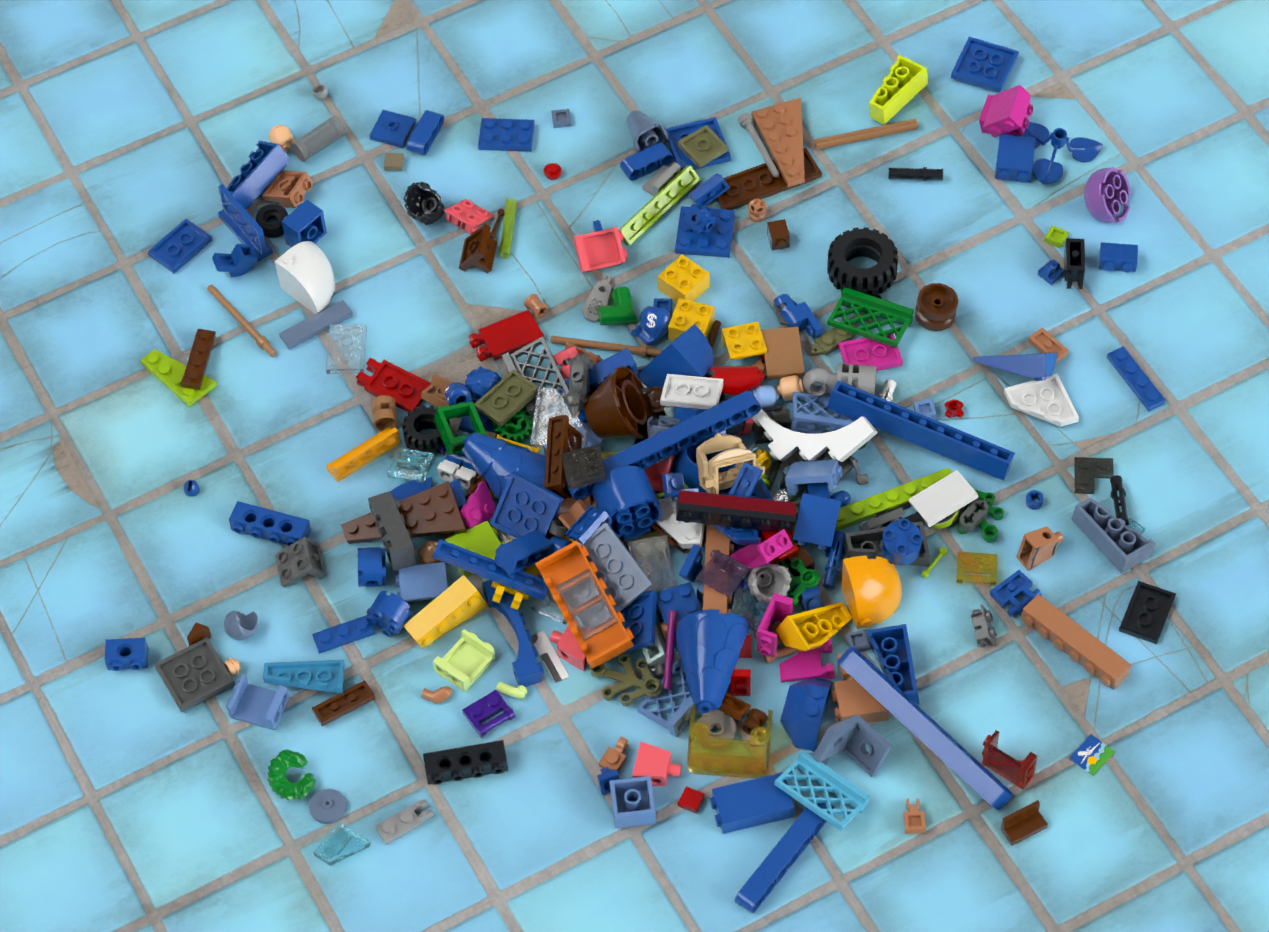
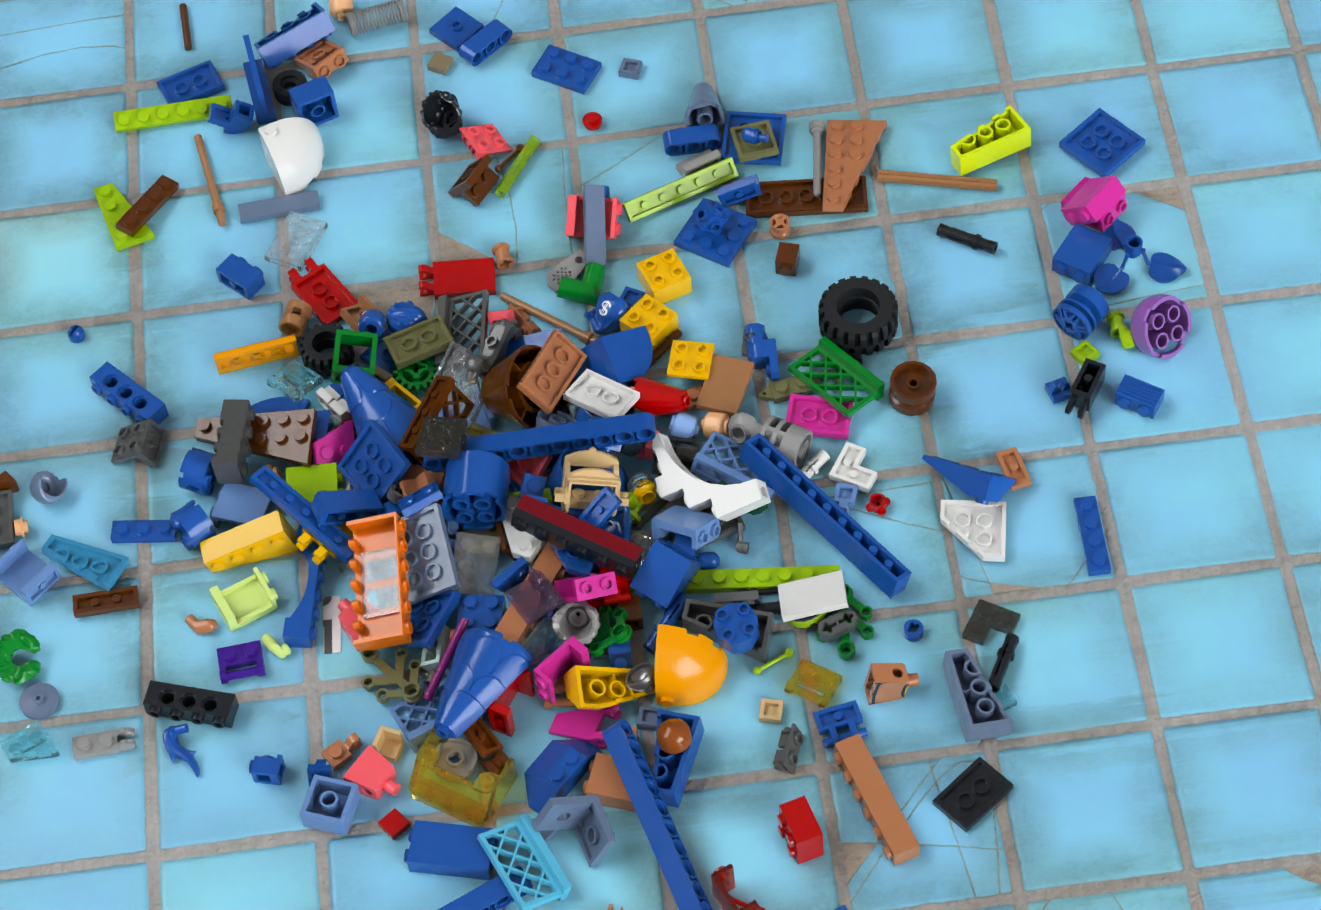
camera: 25 degrees right, 0 degrees up
(147, 196) = (185, 27): none -> reddish brown bar
(174, 275) = (167, 114): none -> lime plate
(315, 393) = (240, 276): none -> blue brick
(471, 804) = (174, 748): none -> blue piece
(560, 793) = (267, 769): none -> blue brick
(605, 255) = (594, 224): none -> sand blue tile
(643, 384) = (551, 371): none -> nougat tile
(654, 733) = (389, 743): none -> tan panel
(703, 141) = (753, 135): none -> blue cylinder
(840, 609) = (641, 678): none -> flat silver piece
(894, 646) = (674, 736): none -> dark orange hair
(916, 390) = (848, 468): none -> white plate
(953, 602) = (771, 711): none -> tan tile
(1031, 686) = (800, 830): none -> red brick
(1040, 203) = (1080, 311): none -> blue wheel
(1075, 209) = (1119, 329): none -> lime connector

